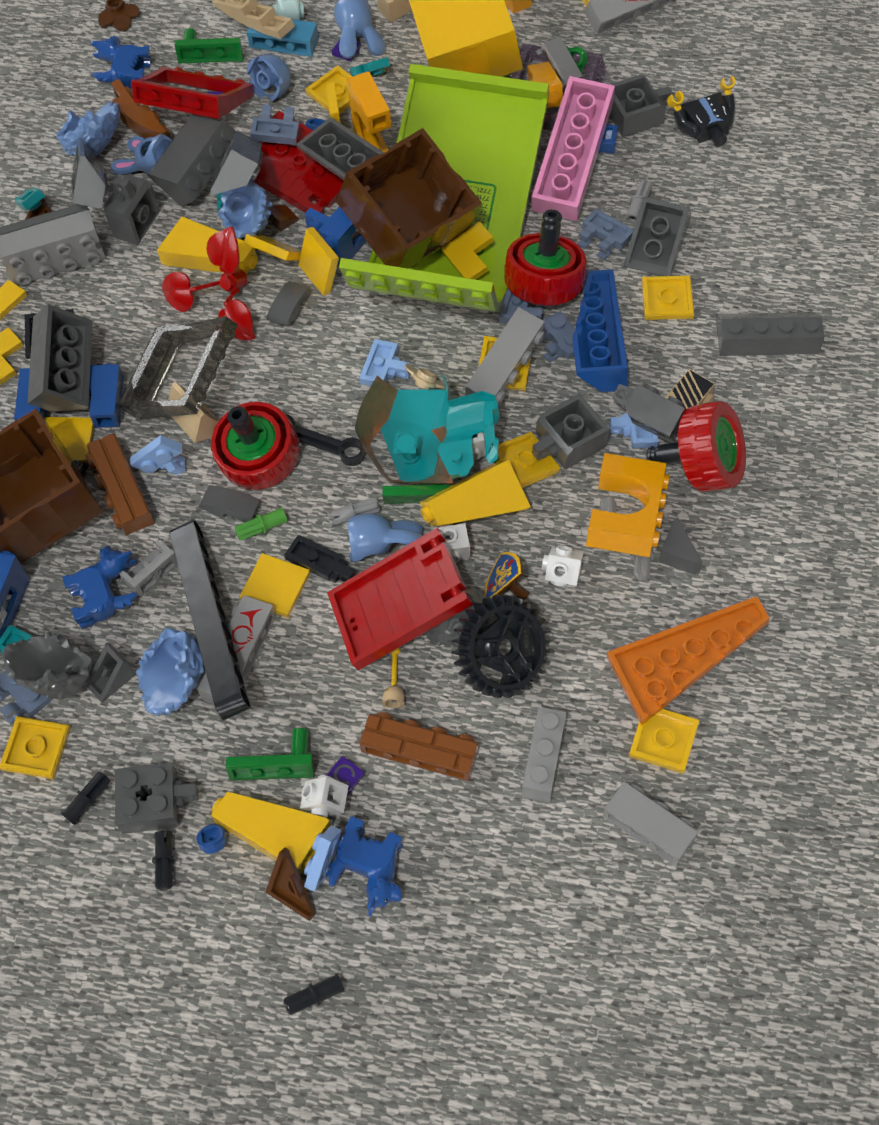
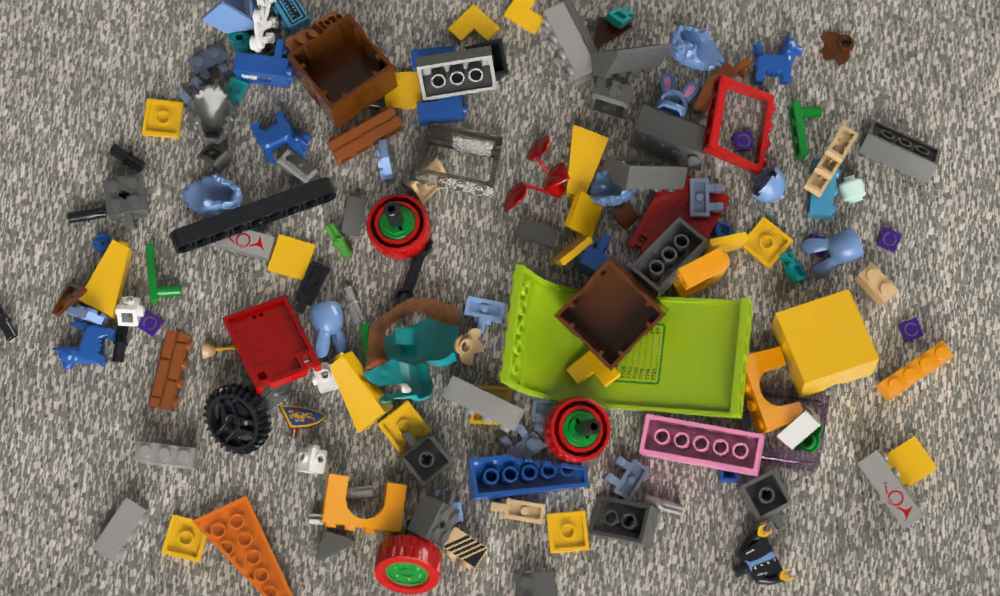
camera: 80 degrees right, 15 degrees up
(371, 817) = (120, 344): none -> black axle
(640, 342) = (519, 510): none -> tan hinge

